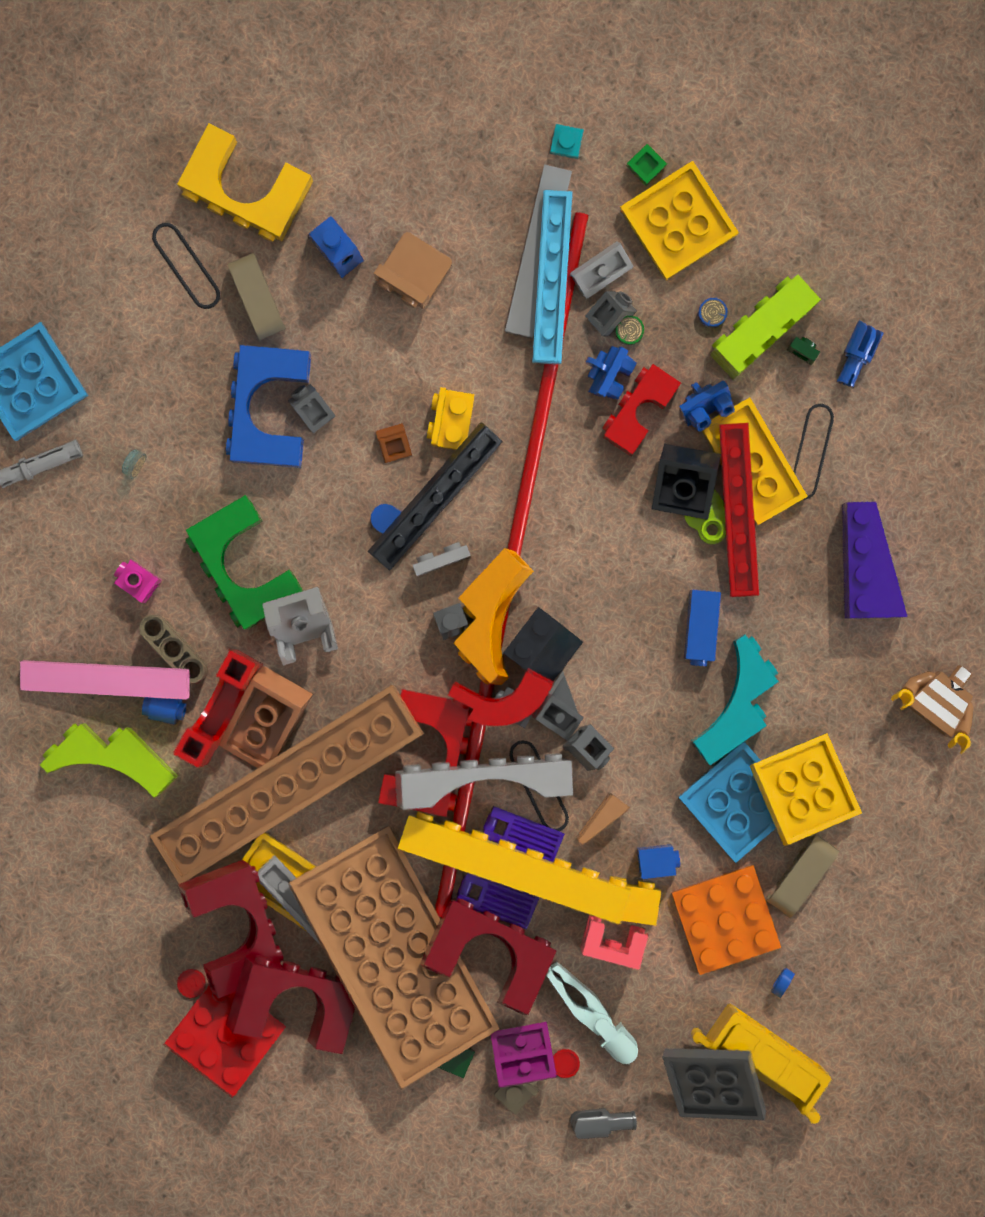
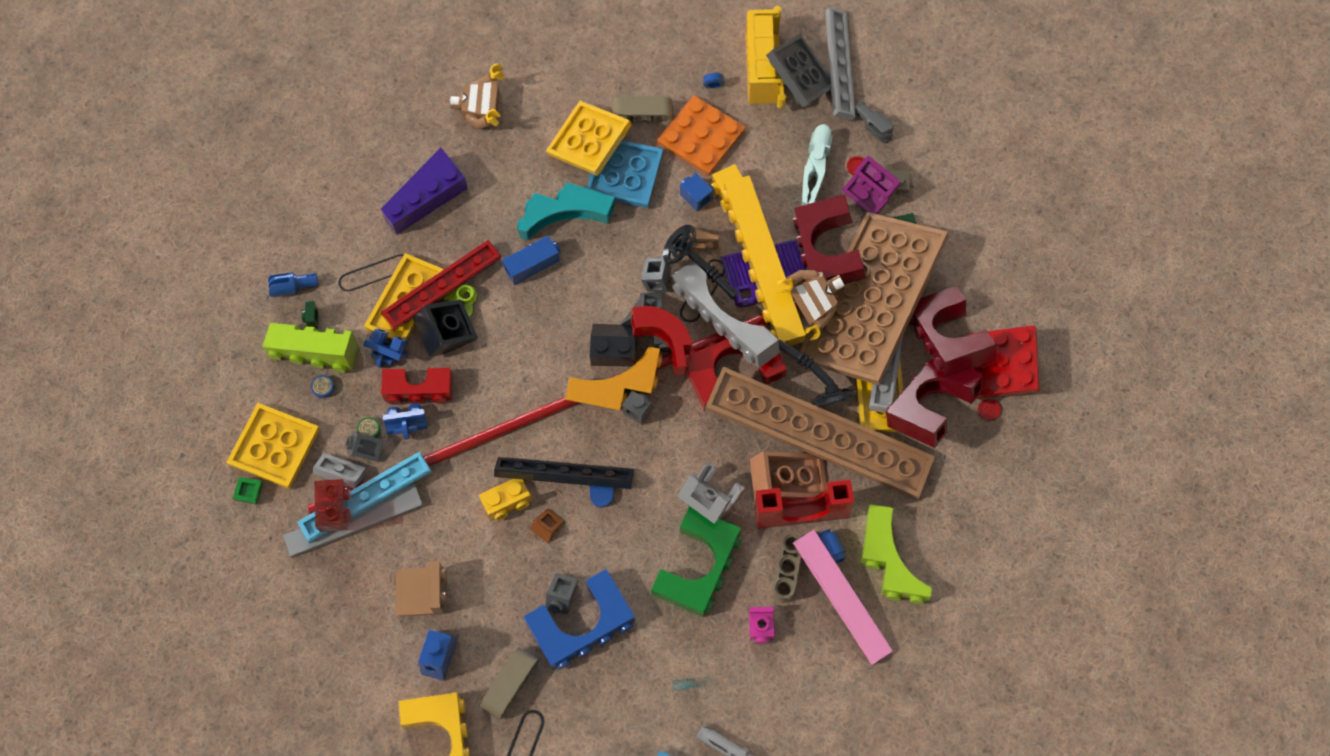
camera: 125 degrees left, 20 degrees down
(320, 828) = (832, 392): none -> black dish
(429, 563) = (595, 435): light grey plate -> none
(431, 889) = (814, 297): none -> torso
(559, 234) = (331, 505): none -> clear red brick
(566, 141) = (264, 553): teal plate -> none
(588, 794) = (685, 249): none -> black dish
(612, 950) = (769, 175): coral panel -> none
(702, 1141) = (840, 64): none -> light grey tile

